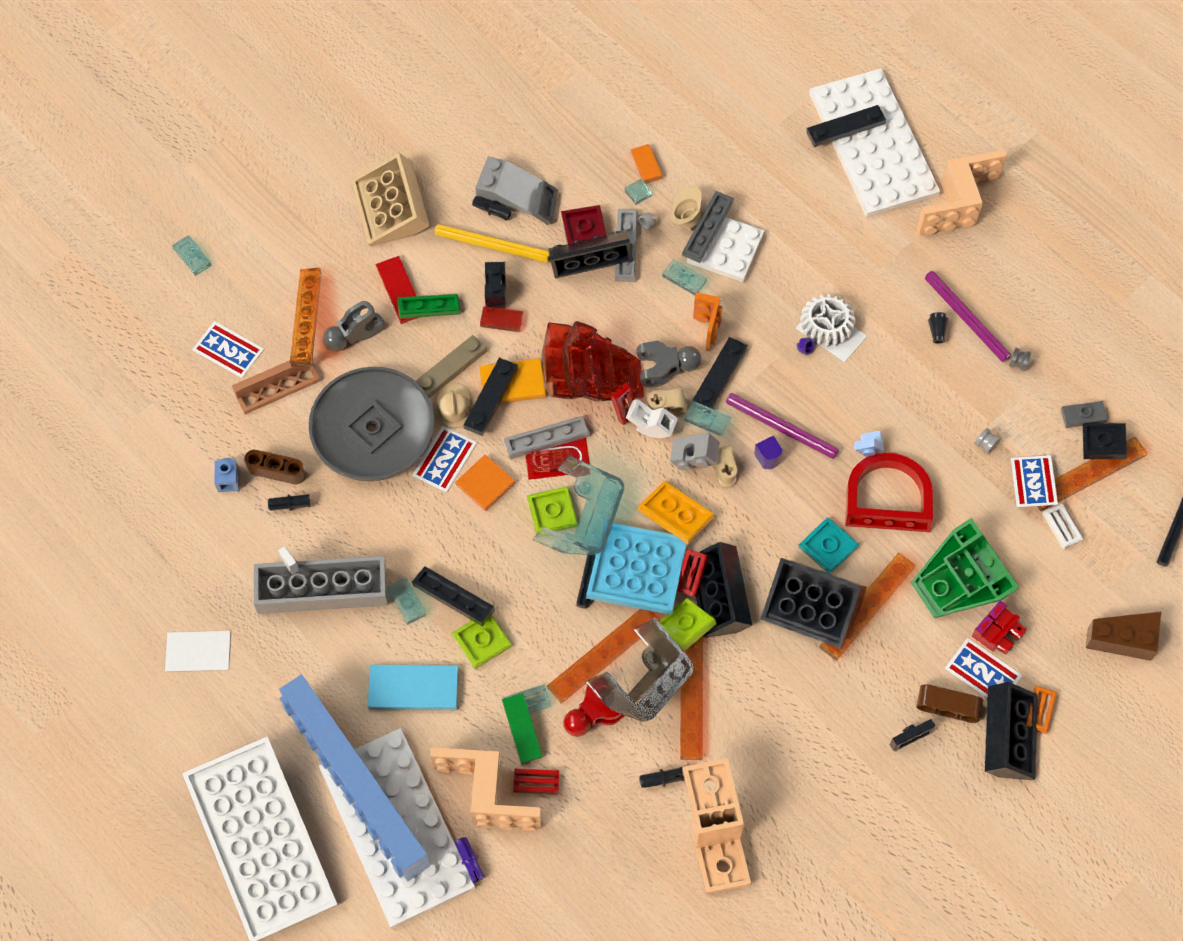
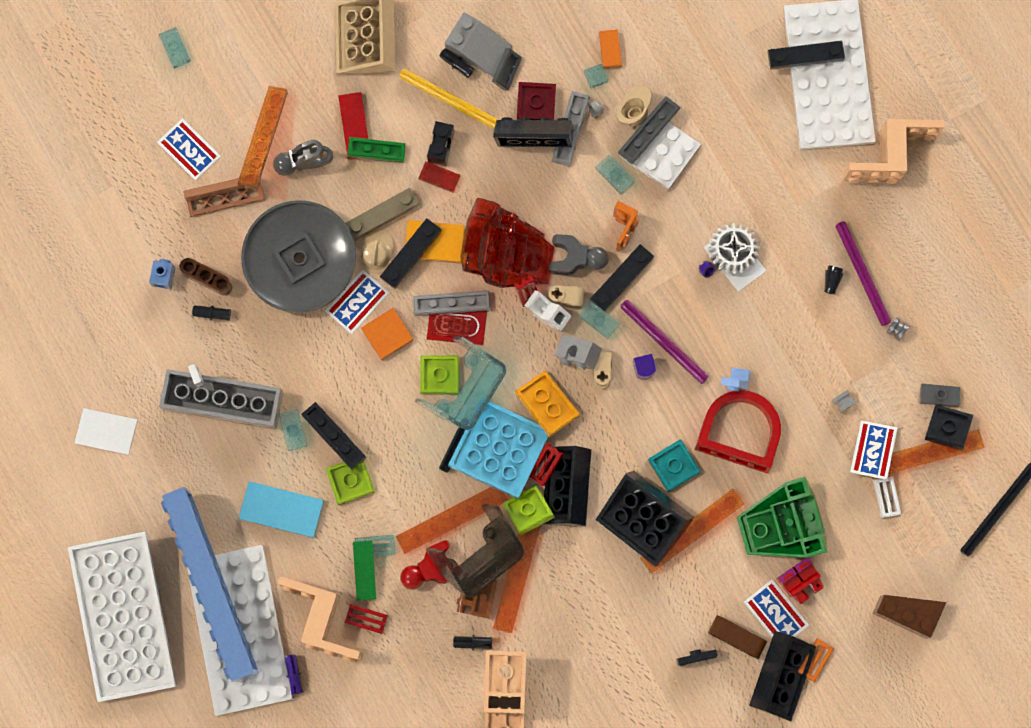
camera: 15 degrees right, 15 degrees up
(660, 731) = (481, 603): none -> dark orange plate

